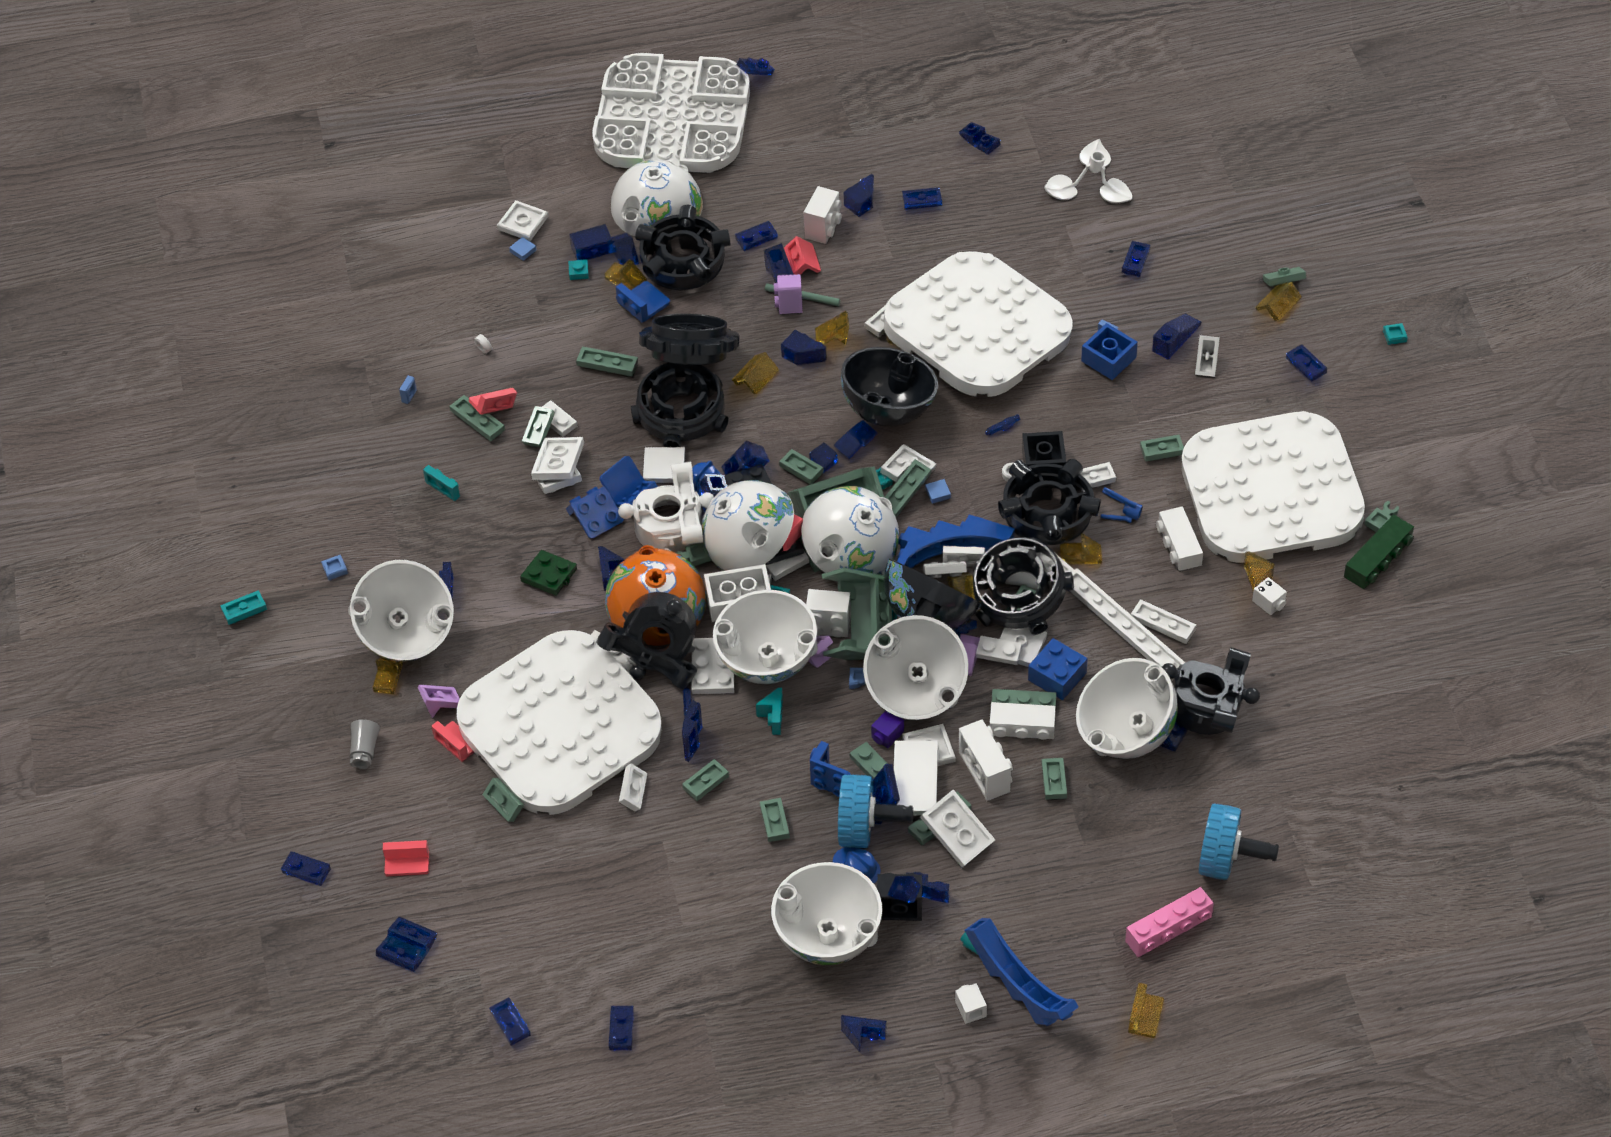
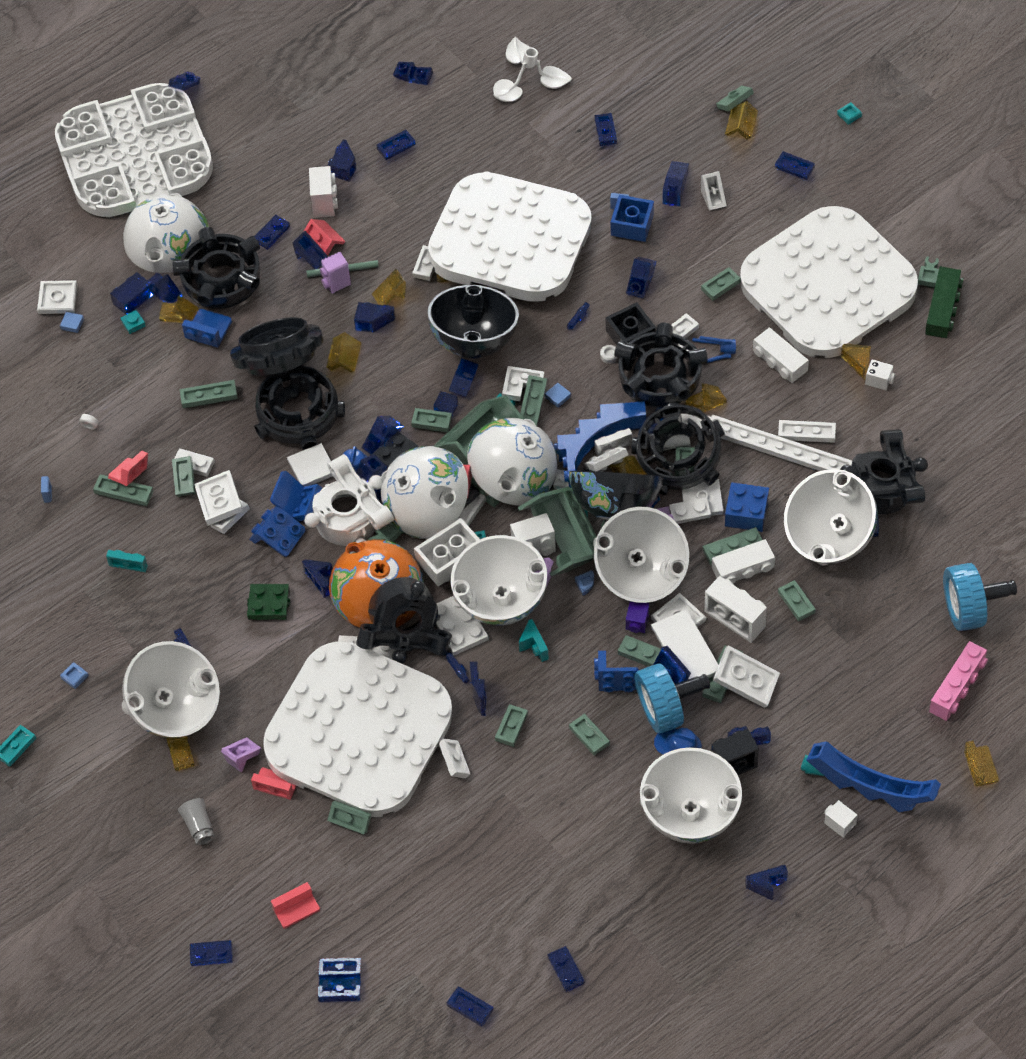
camera: 25 degrees left, 5 degrees up
(904, 888) = (741, 746): clear blue slope -> none
(1085, 410) = (640, 276): none -> clear blue slope

